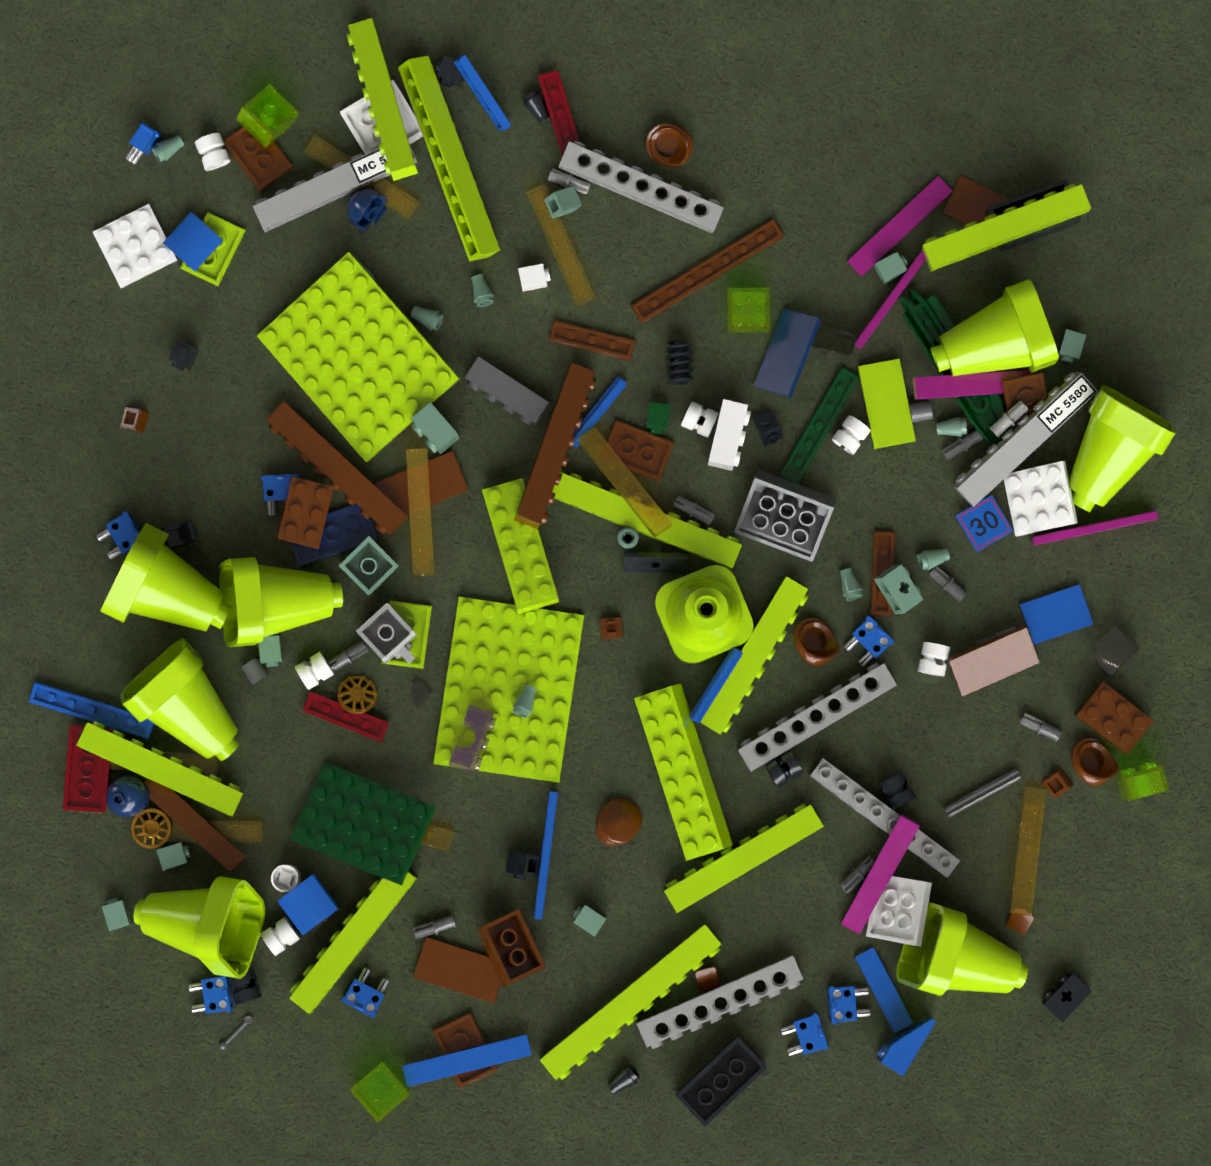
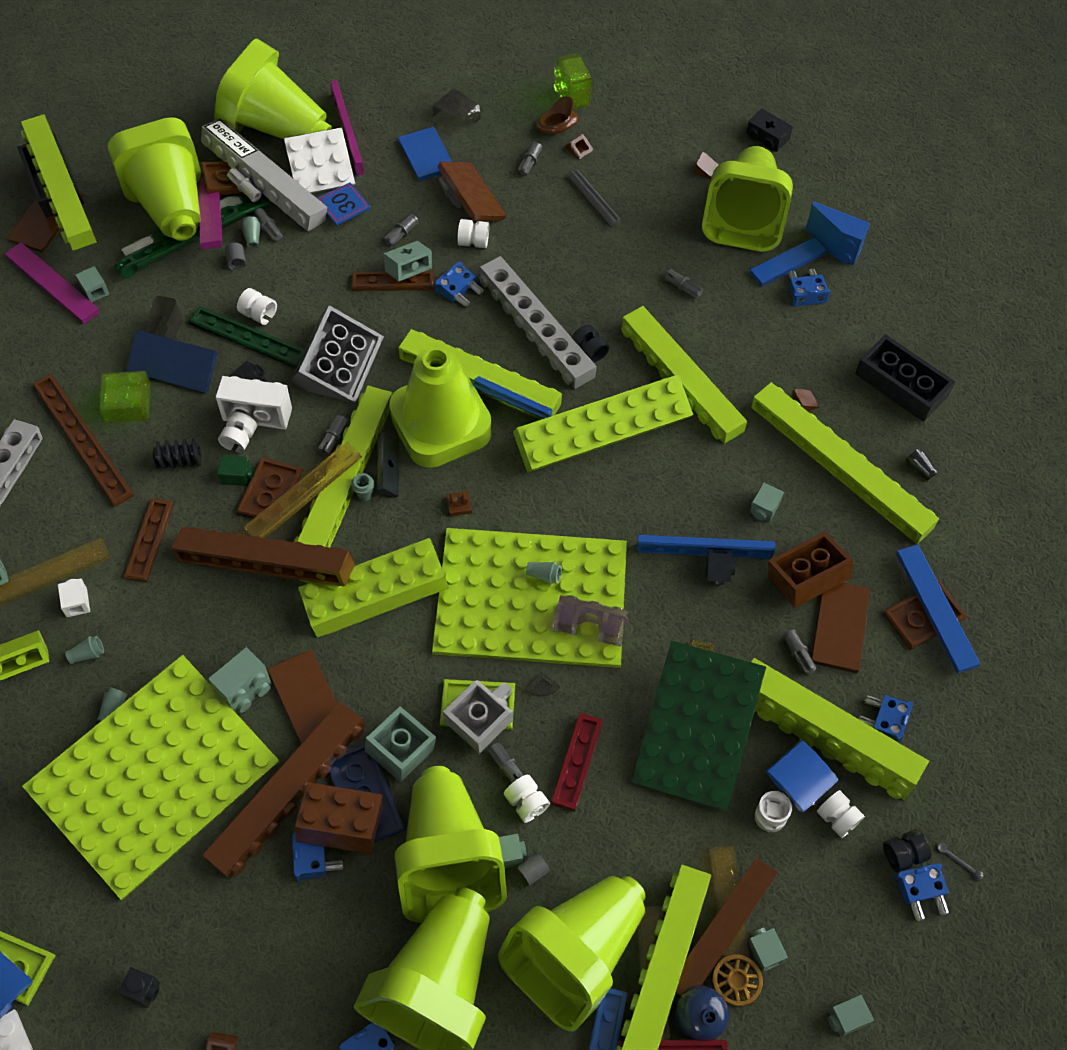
camera: 95 degrees left, 25 degrees down
(180, 534) = (363, 966): black bracket -> none
(210, 923) = (846, 899): lime cone -> none
(357, 694) = (550, 750): pearl gold wheel -> none
(380, 1091) = (992, 690): clear neon green brick -> none
(420, 512) = (329, 695): clear yellow tile -> none
(506, 391) = (201, 615): dark grey brick -> none
(599, 408) = (213, 520): blue axle -> none
(618, 822) = (662, 484): reddish brown piece -> none
(648, 1026) = (836, 397): light grey brick -> none
(810, 643) = (469, 320): reddish brown piece -> none
(811, 1034) = (843, 313): blue piece -> none
(850, 586) = (406, 302): sand green cone -> none
(880, 874) = (682, 259): magenta tile -> none
(881, 816) = (626, 264): light grey brick -> none
(886, 403) = (225, 282): lime tile -> none
(891, 299) = (114, 276): magenta tile -> none
(897, 790) = (601, 254): black wheel -> none
(900, 912) = (713, 243): white plate -> none
(931, 558) = (378, 243): sand green cone -> none
(1028, 851) = (644, 160): clear yellow tile -> none
(1113, 718) = (517, 107): reddish brown brick -> none

